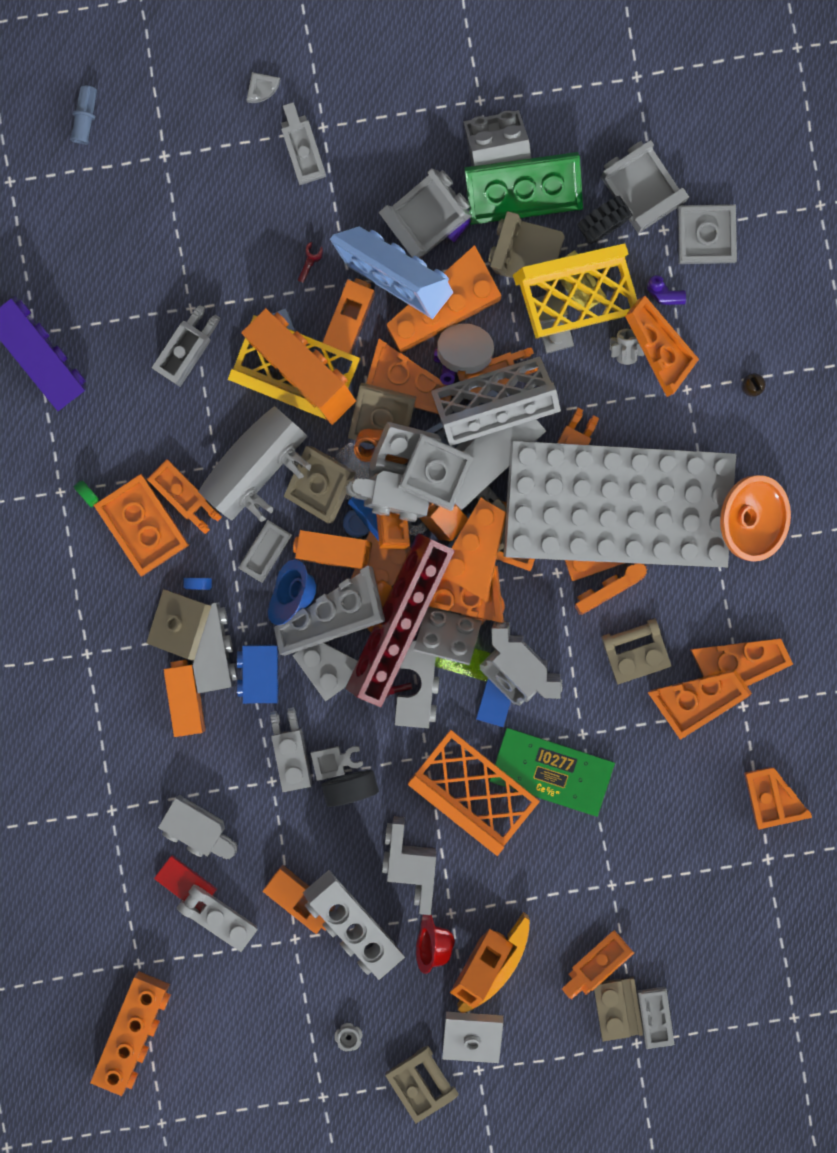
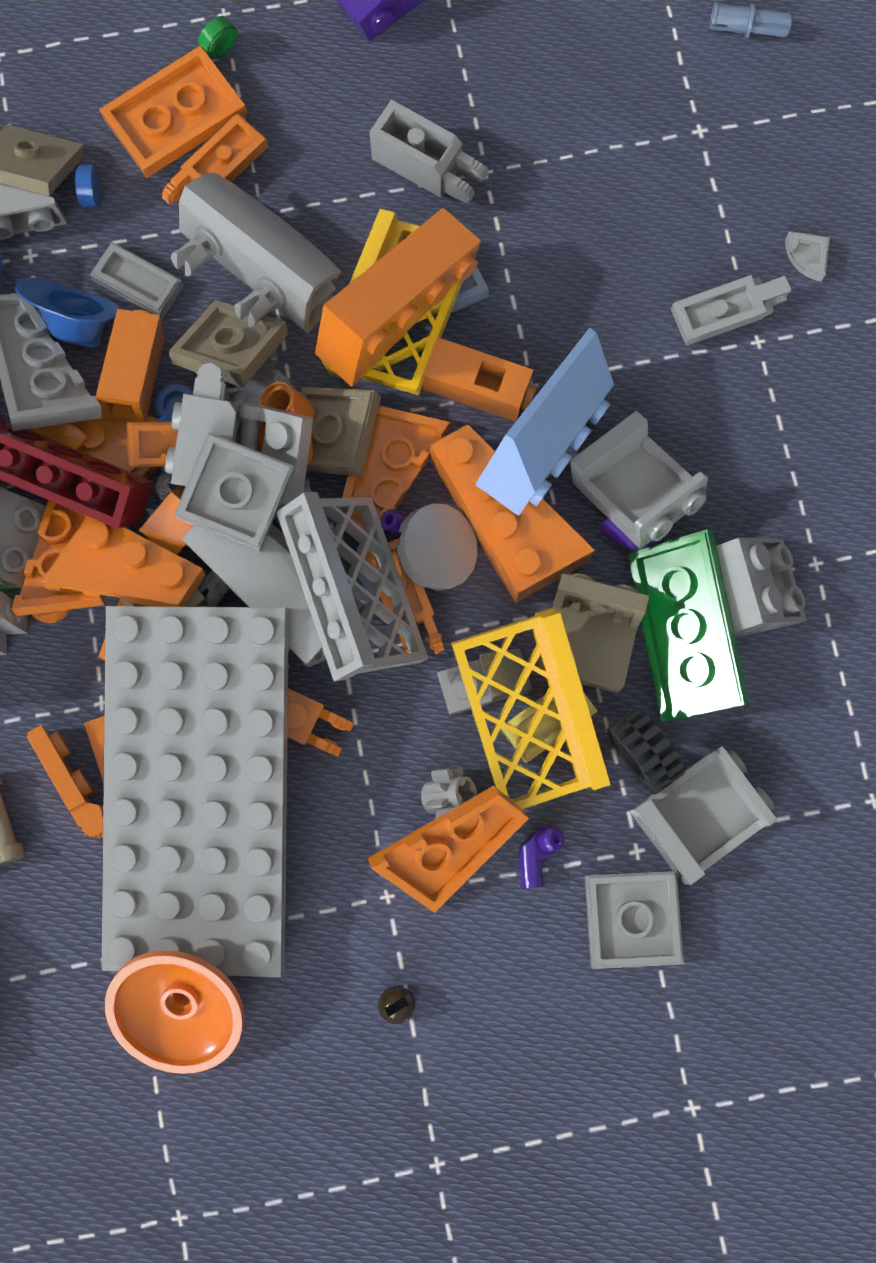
camera: 90 degrees right, 10 degrees down
(311, 259) = (561, 327): dark red hand -> none

